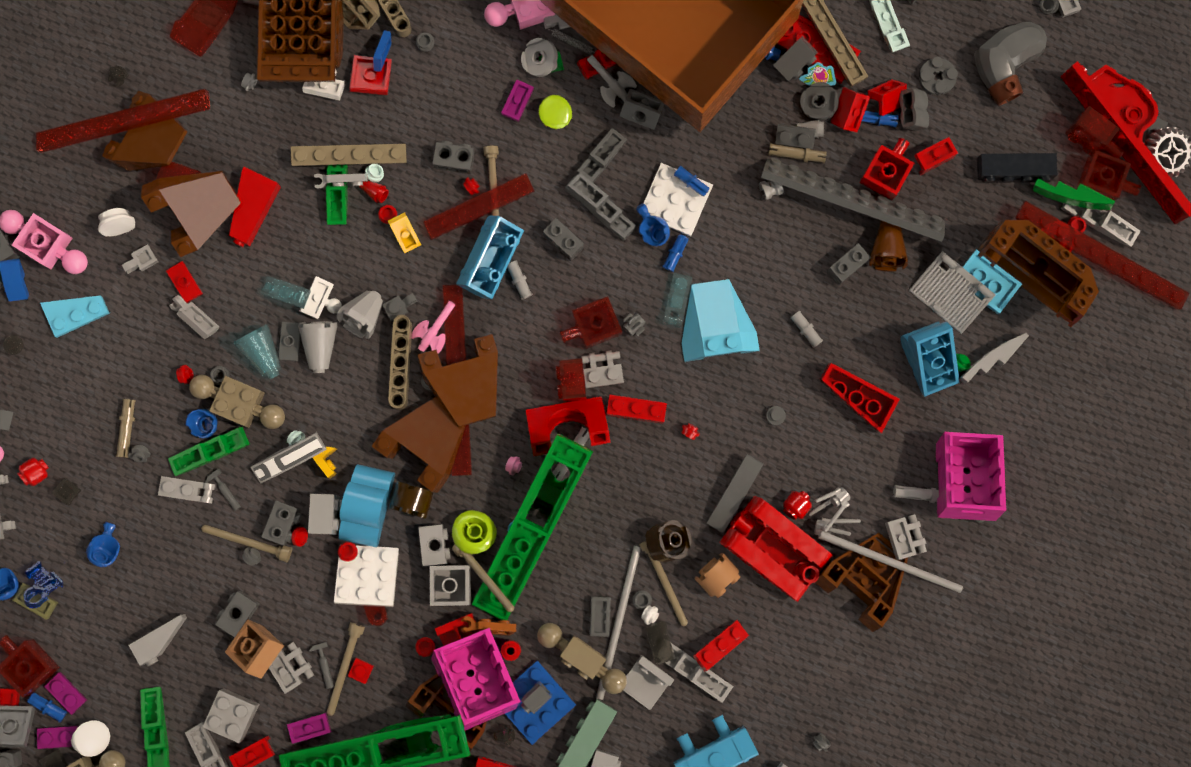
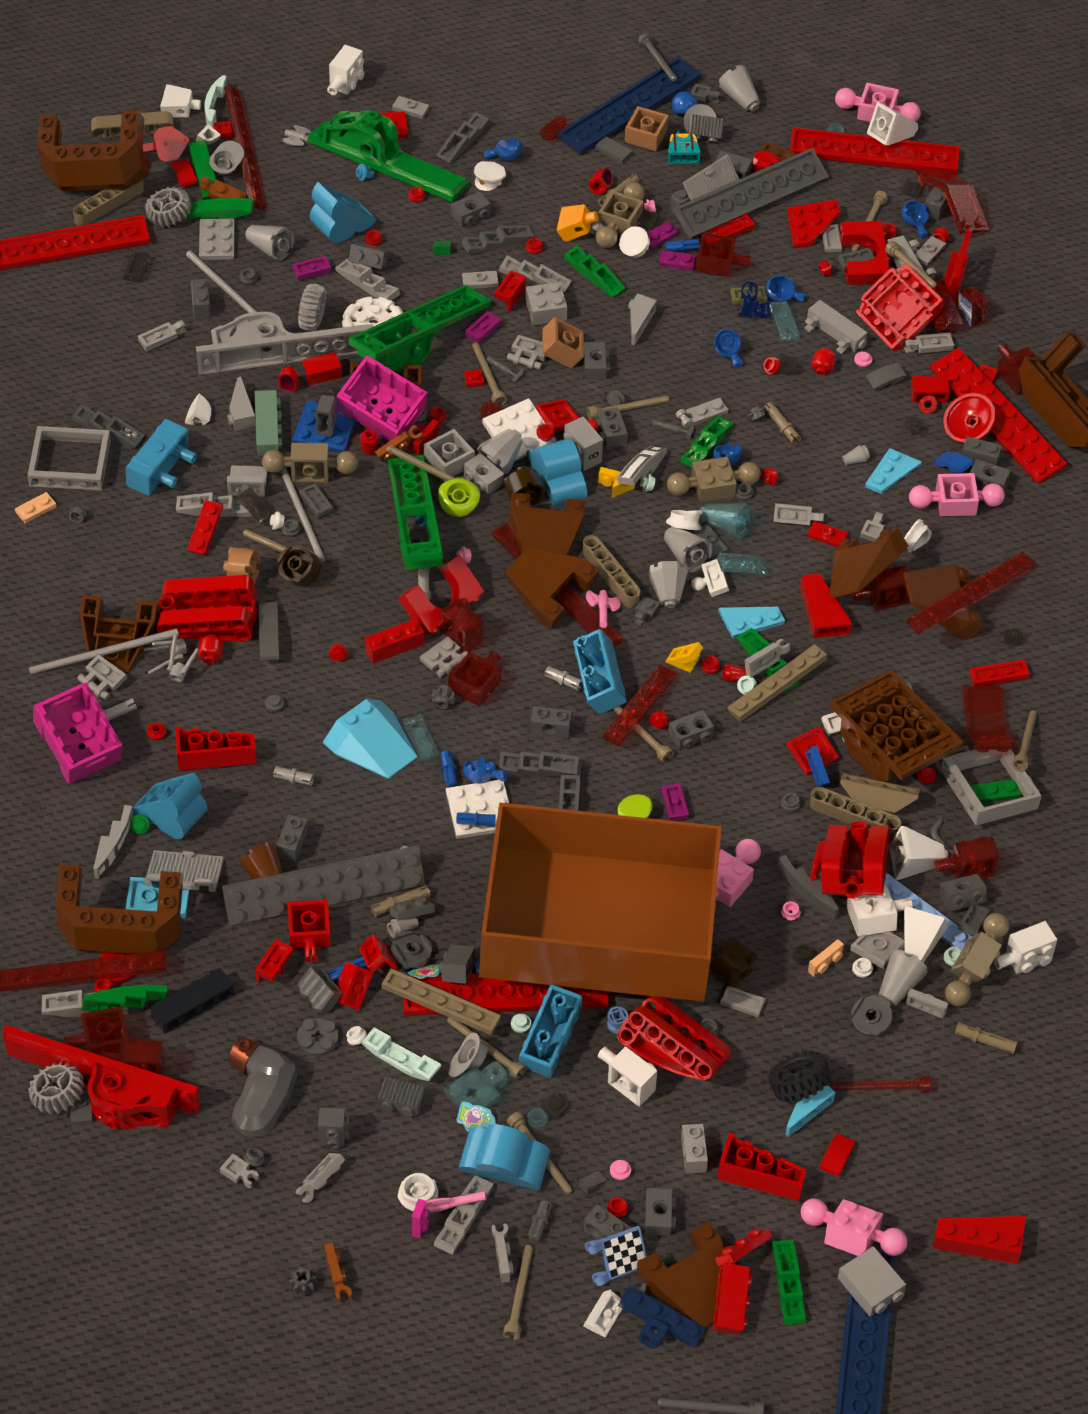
camera: 150 degrees right, 30 degrees down
(28, 546) = (784, 321): none -> clear light blue plate
(81, 500) = (771, 365): none -> red plate
(88, 346) = (857, 455): none -> light grey cone
(159, 47) = (999, 673): none -> red plate
(298, 370) = (685, 519): none -> white hat
(317, 571) = (557, 414): none -> red plate
(319, 237) = (743, 618): none -> medium azure wing
(403, 553) = (502, 449): none -> light grey cone
(885, 451) = (156, 735): none -> red plate
(909, 55) = (356, 1035): none -> white plate

